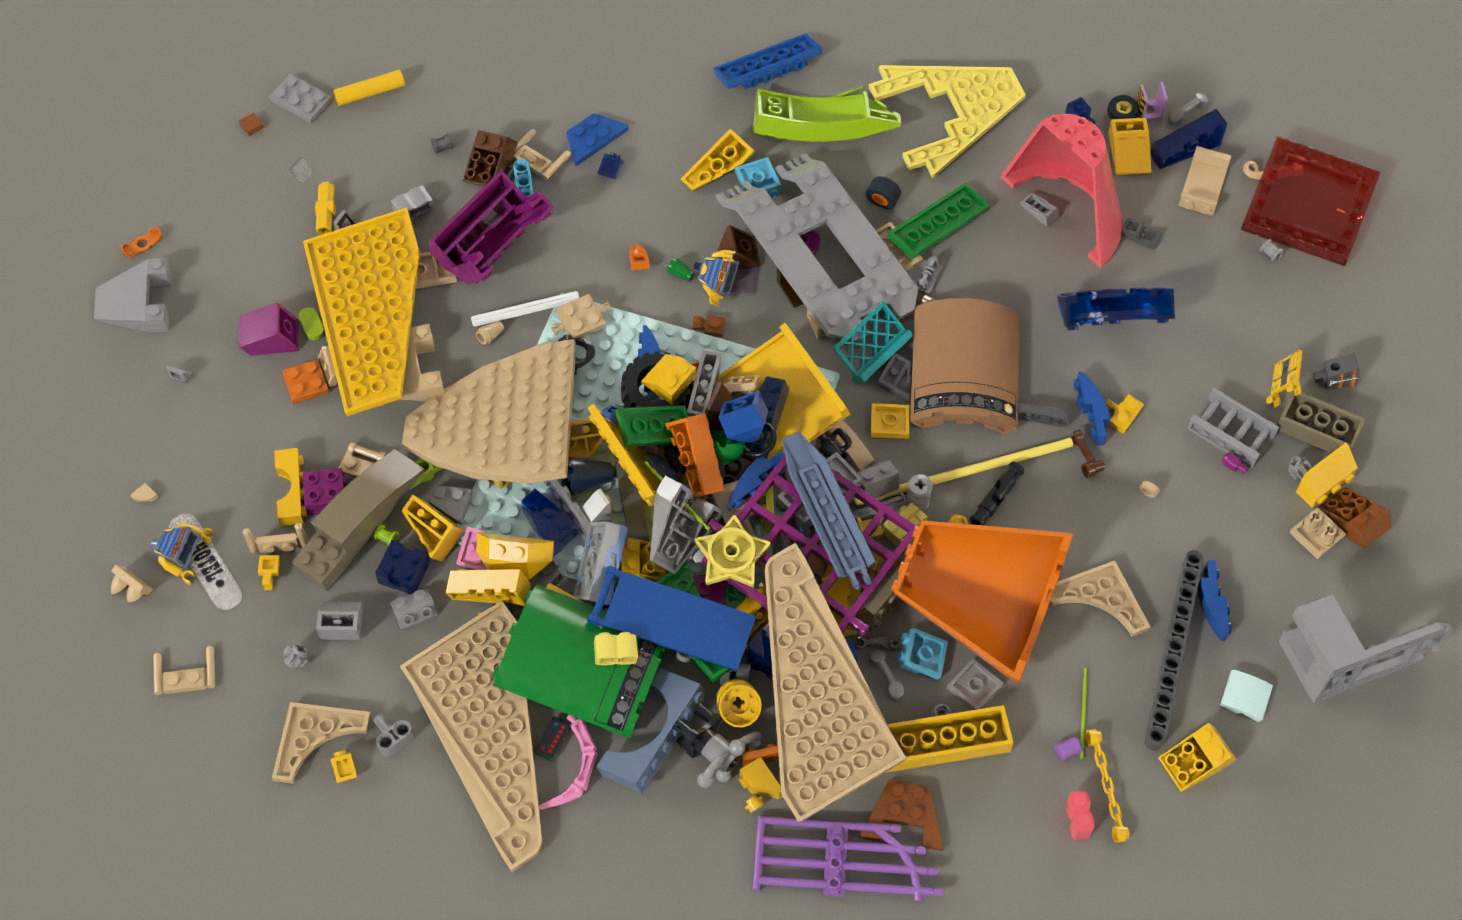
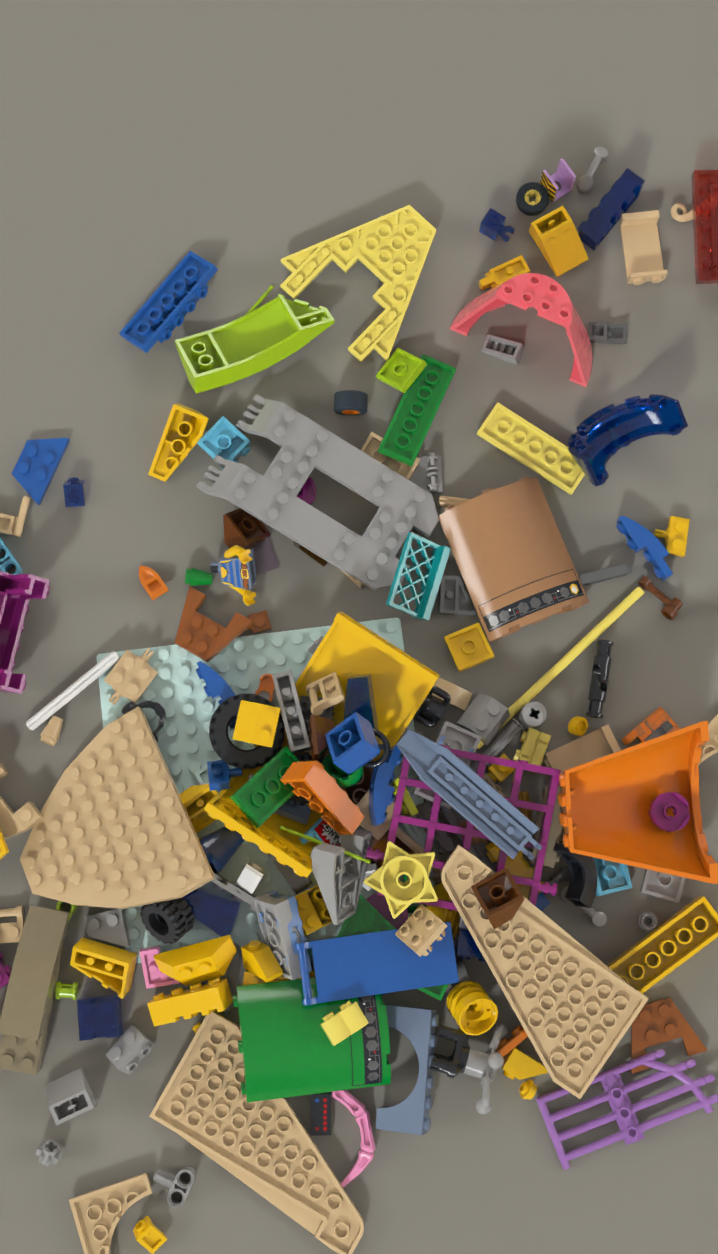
camera: 25 degrees left, 20 degrees up
(507, 505) = (168, 919): none -> black tyre
(569, 577) = (260, 961): none -> yellow slope
(662, 313) = (202, 635): none -> dark orange wing
(729, 599) = (421, 931): none -> tan plate
(808, 599) = (499, 897): none -> reddish brown slope
(899, 635) = (582, 877): none -> black arch
(940, 186) = (401, 370): none -> lime tile
(1000, 629) = (658, 811): none -> magenta plate
(1027, 292) = (531, 447): none -> light yellow plate

